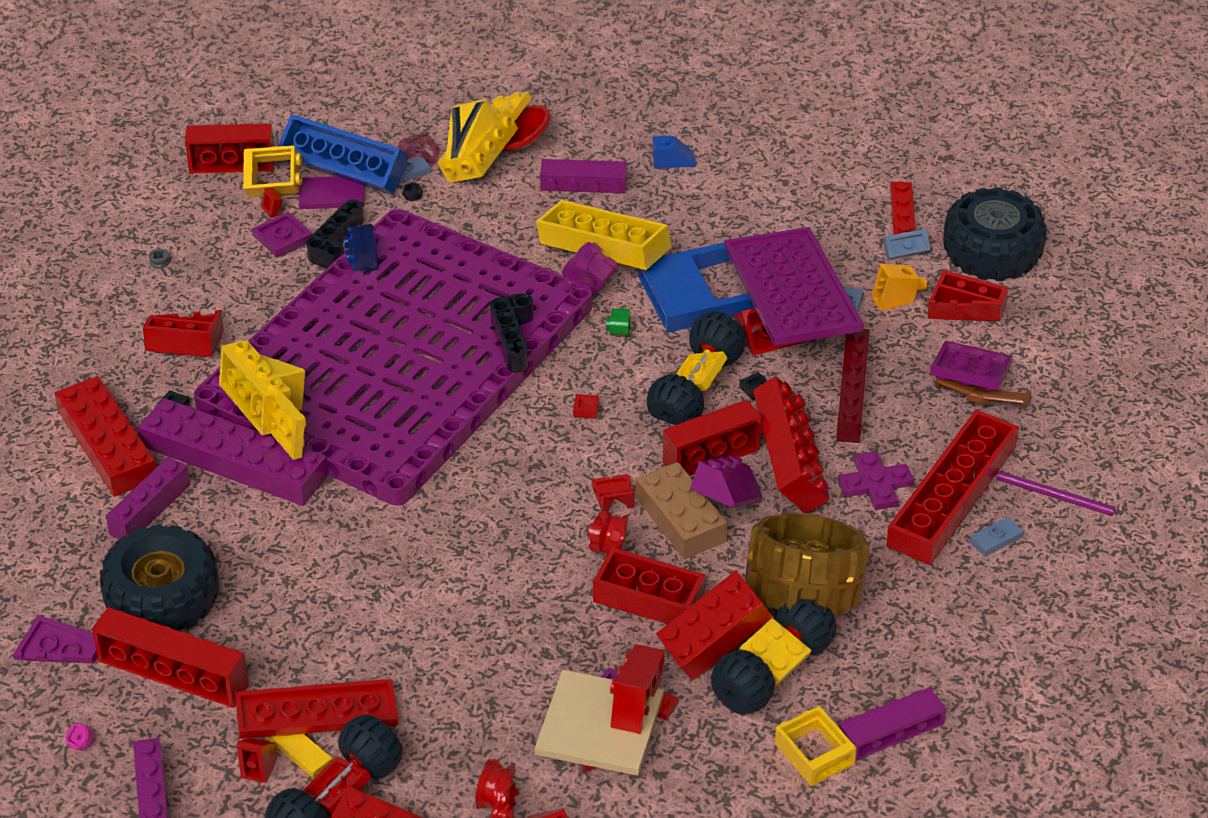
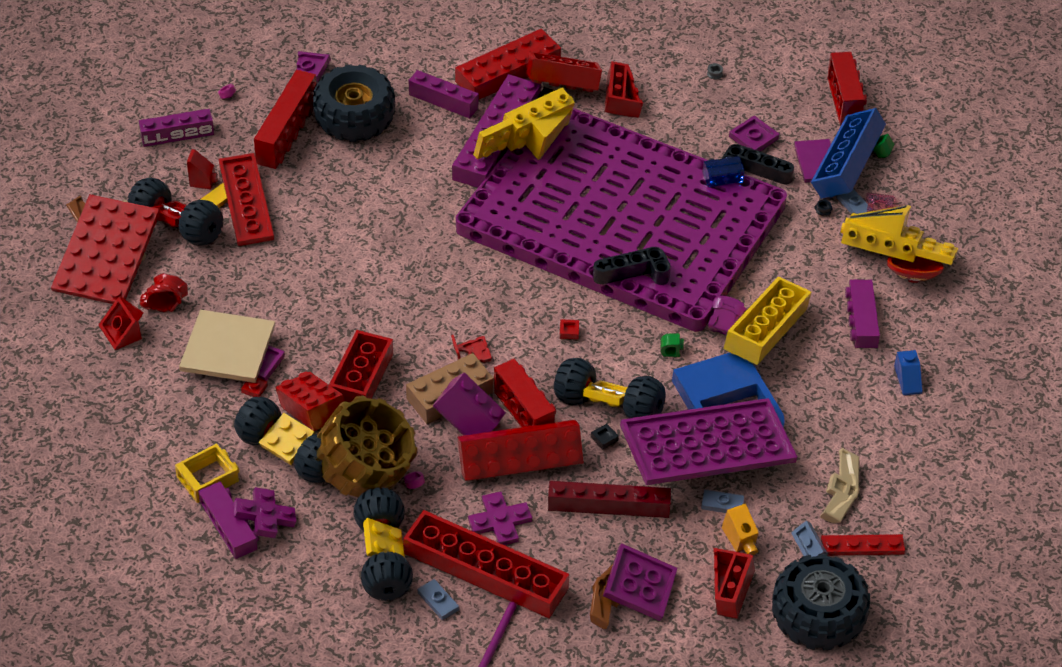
camera: 85 degrees right, 5 degrees up
(148, 373) = (563, 71): none -> red brick
(251, 160) = (809, 108): yellow window -> none
(271, 202) = (790, 124): red plate -> none
(607, 532) = (414, 342): red piece -> none
(635, 686) = (247, 353): red wedge -> none
(830, 214) = (842, 487): none -> tan plate
(884, 682) = (264, 512): none -> magenta plate
(983, 562) = (387, 572): none -> black plate

